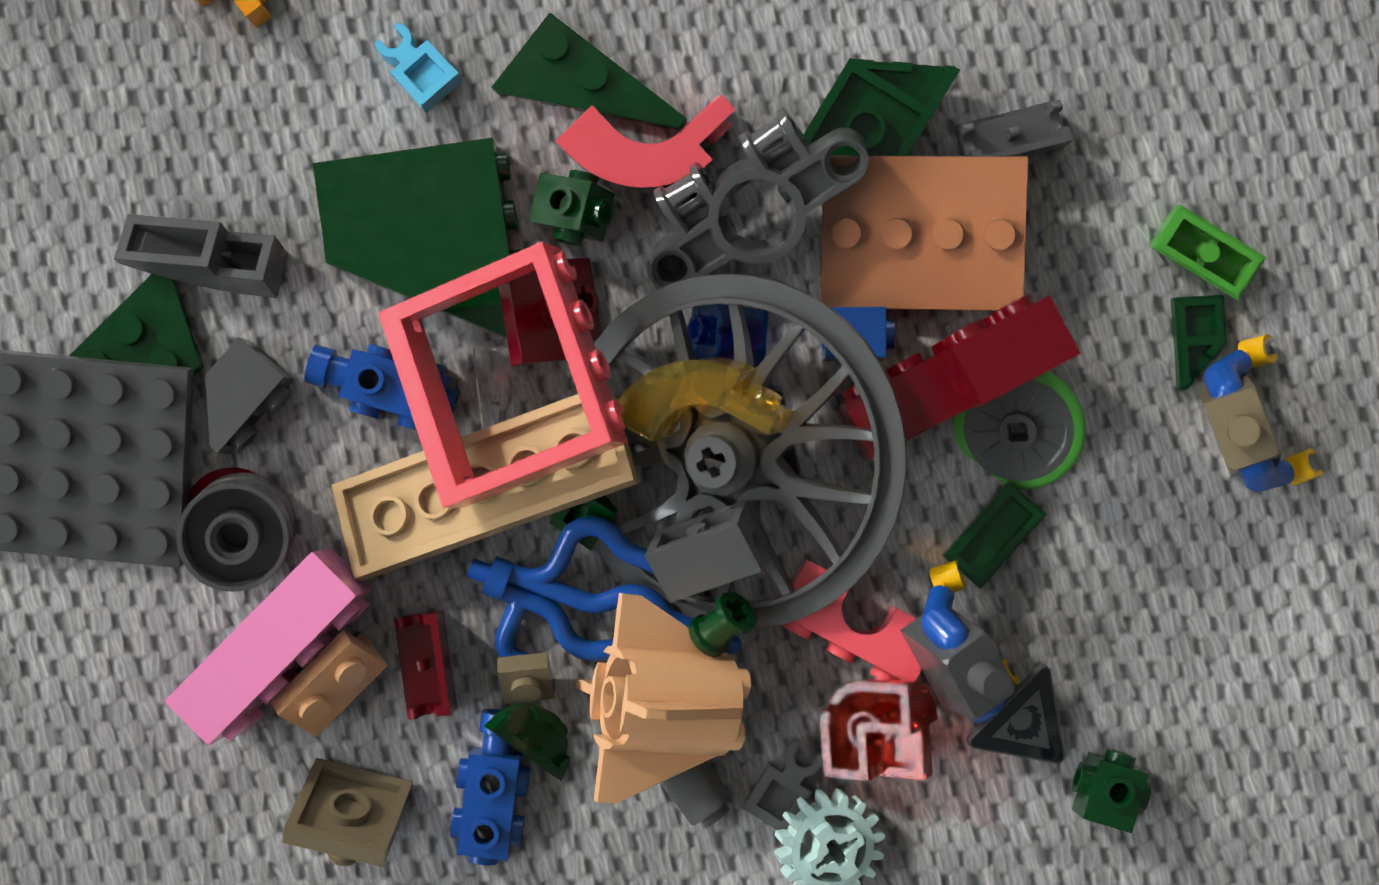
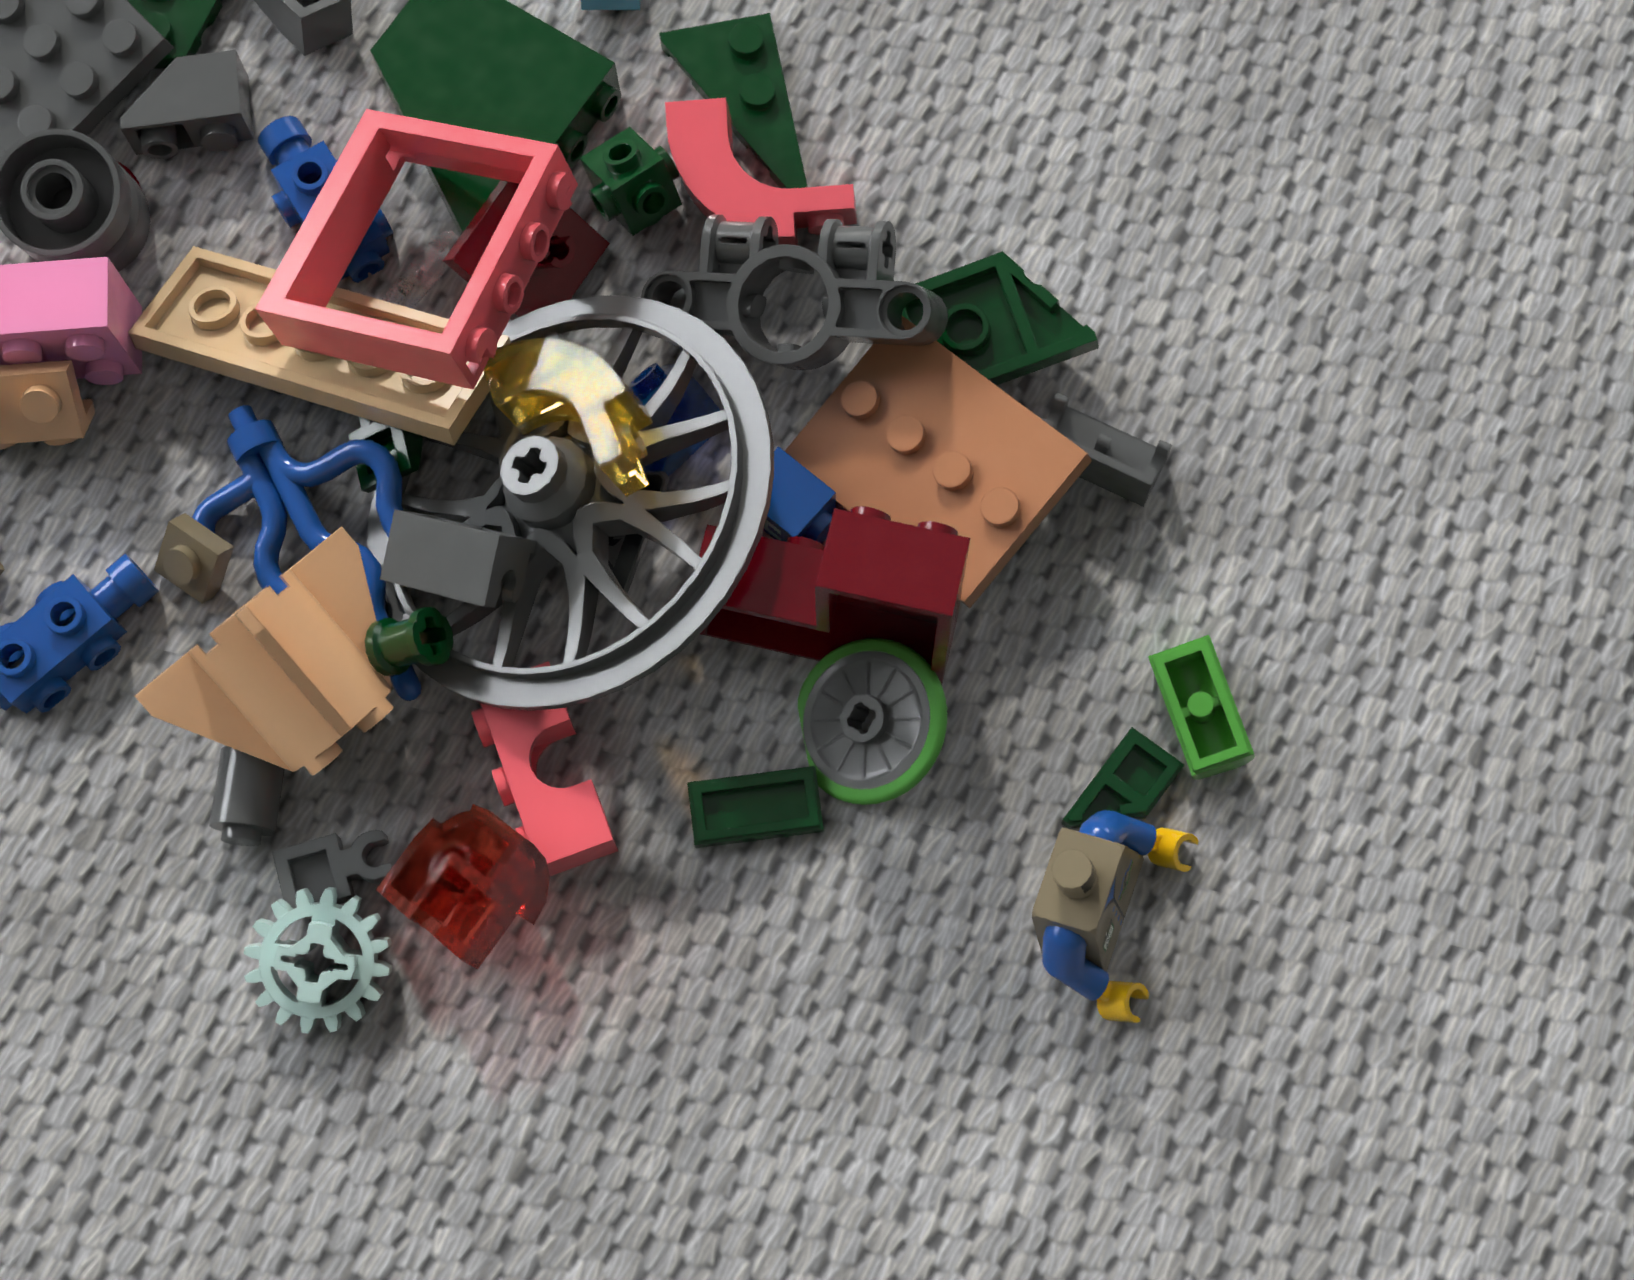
camera: 40 degrees right, 15 degrees down
(425, 664) = (122, 471): dark red hinge -> none
(534, 734) = (150, 615): dark green tile -> none
(958, 653) = (601, 866): dark grey torso -> none
(1026, 724) = (616, 1008): black piece -> none
(1112, 807) = (614, 1149): dark green brick -> none

